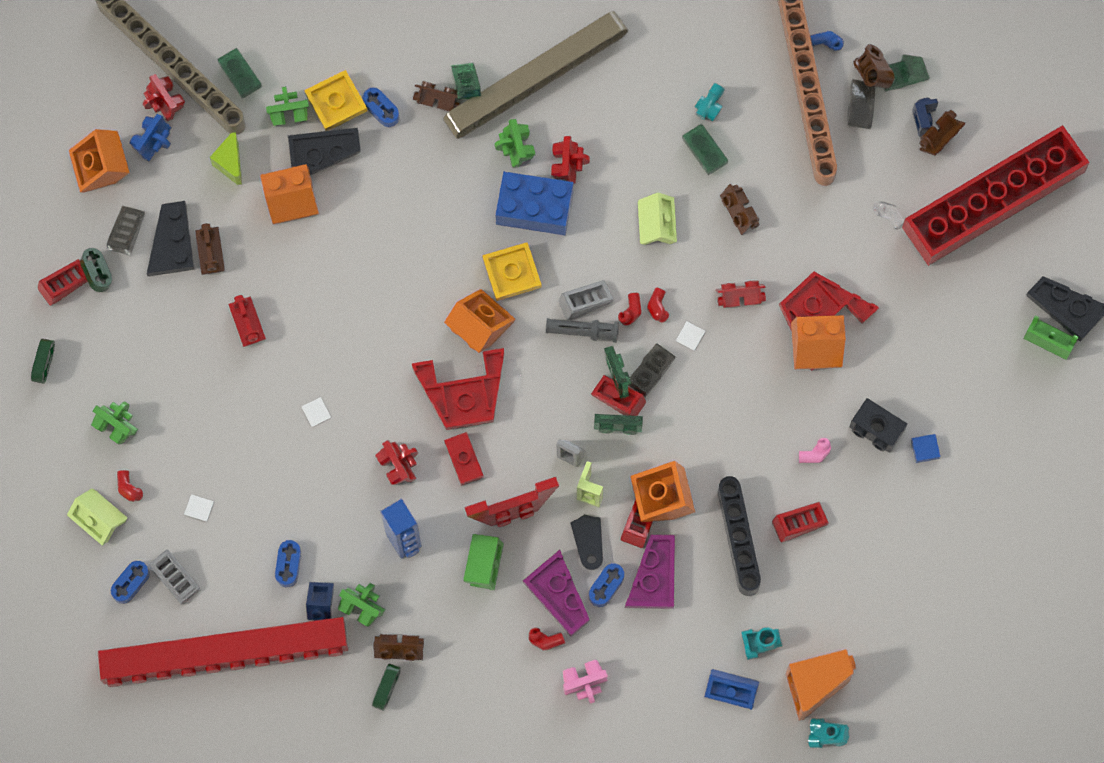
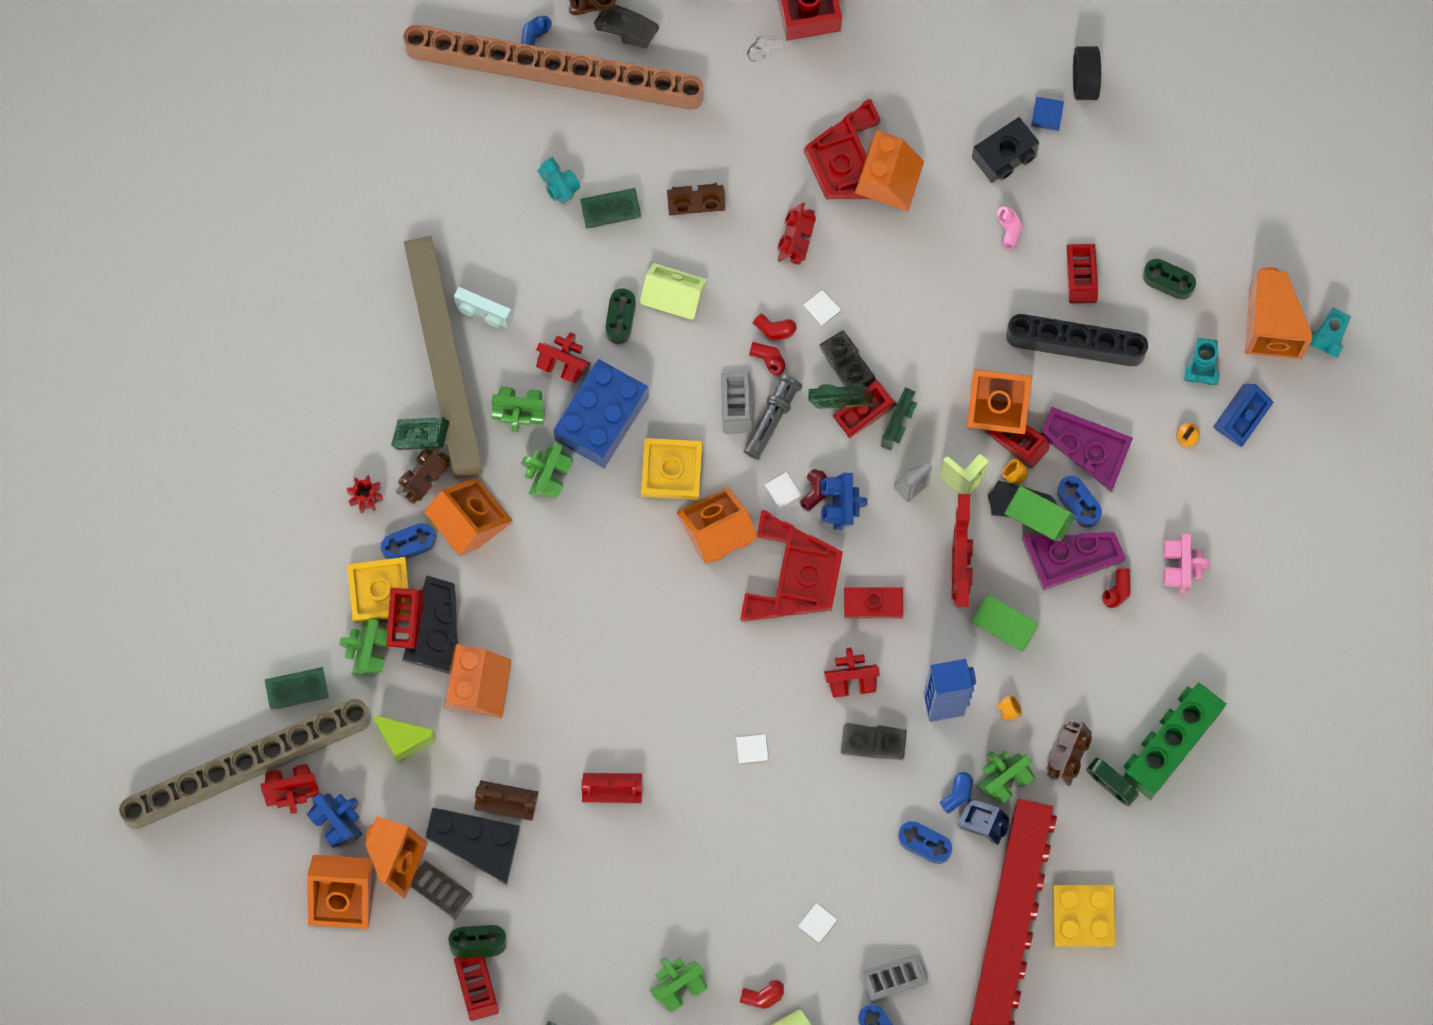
camera: 70 degrees left, 0 degrees up
(133, 184) = (394, 853): none -> orange slope
(273, 702) = (1083, 915): none -> yellow plate
(329, 127) = (415, 618): none -> red slope
(335, 575) = (960, 793): none -> blue arm
(353, 497) = (873, 742): none -> clear smoke slope
(405, 67) = (368, 487): none -> red gear
(417, 139) = (467, 515): none -> orange slope
(421, 593) = (1010, 708): none -> light orange hinge
(462, 184) = (553, 459): none -> bright green hips
(469, 741) = (1207, 709): none -> green brick
(523, 407) = (845, 501): none -> blue hips
(530, 360) = (783, 489): none -> white sticker
(539, 384) = (814, 496): none -> dark red arm
(579, 555) = (1040, 514): none -> bright green hinge
(584, 78) = (492, 312): none -> light aqua plate
(610, 527) = (1015, 472): none -> light orange hinge
(620, 184) = (614, 315): none -> dark green beam
(695, 655) = (1193, 438): none -> light orange hinge
(817, 591) = (1169, 278): none -> dark green beam
(968, 463) = (1086, 73): none -> black tyre

